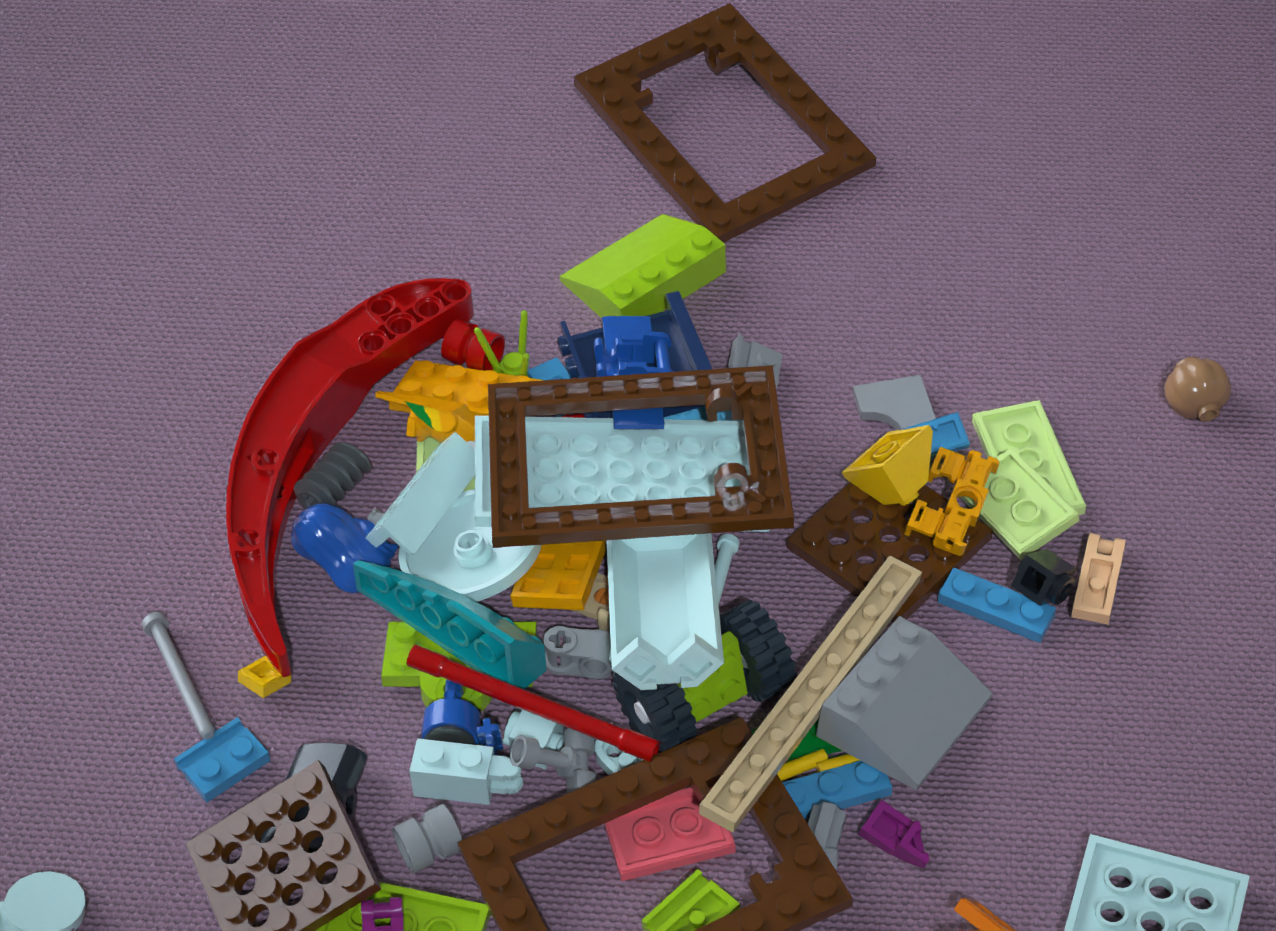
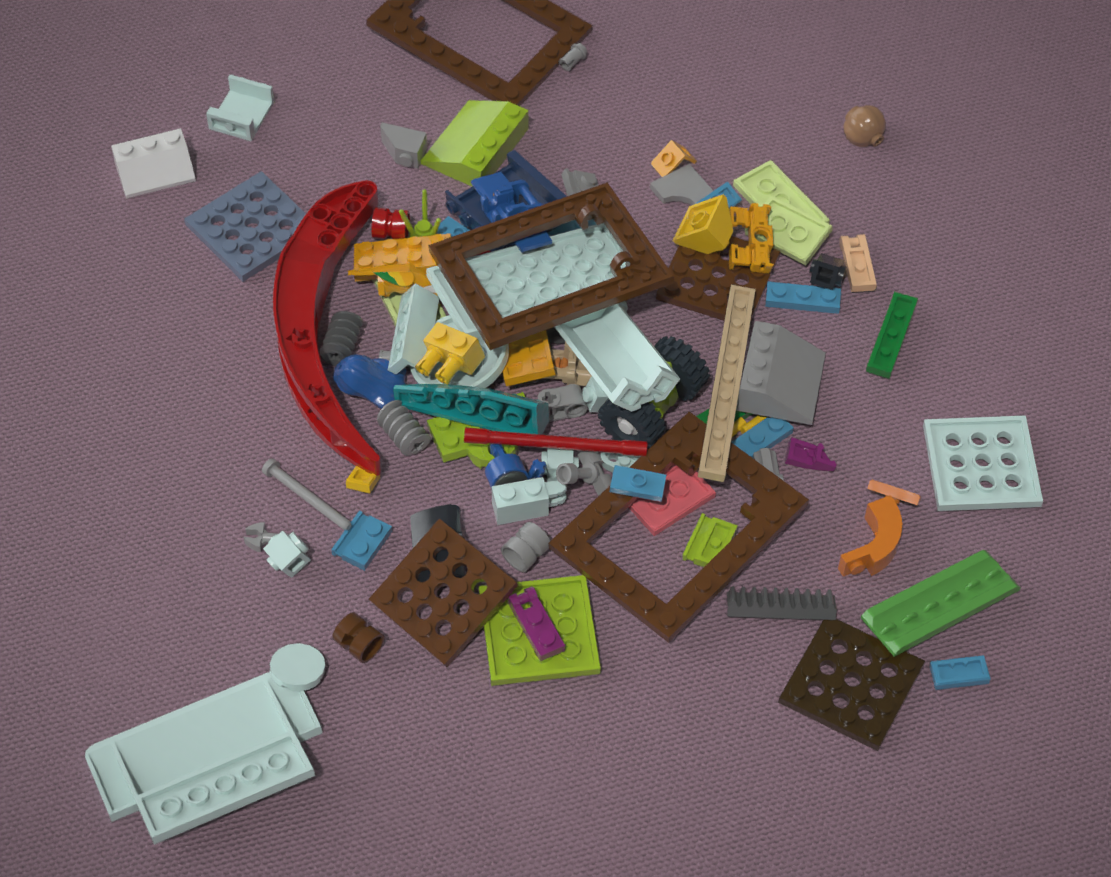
camera: 25 degrees left, 5 degrees up
(102, 716) = (263, 536): none -> light grey bar
(111, 746) = (287, 553): none -> light aqua brick
(141, 892) = (358, 637): none -> reddish brown wheel
(217, 190) = (153, 163): none -> white slope
(281, 295) = (235, 224): none -> sand blue piece
(348, 623) = (403, 428): none -> light grey piece
(366, 153) = (242, 108): none -> light aqua panel
(457, 536) = (451, 348): none -> yellow brick
(548, 249) = (404, 144): none -> light grey slope
(615, 796) = (637, 483): none -> dark azure plate
(830, 191) = (577, 53): none -> light grey pin
(898, 358) = (671, 157): none -> light orange bracket
(1100, 696) = (892, 335): none -> green plate

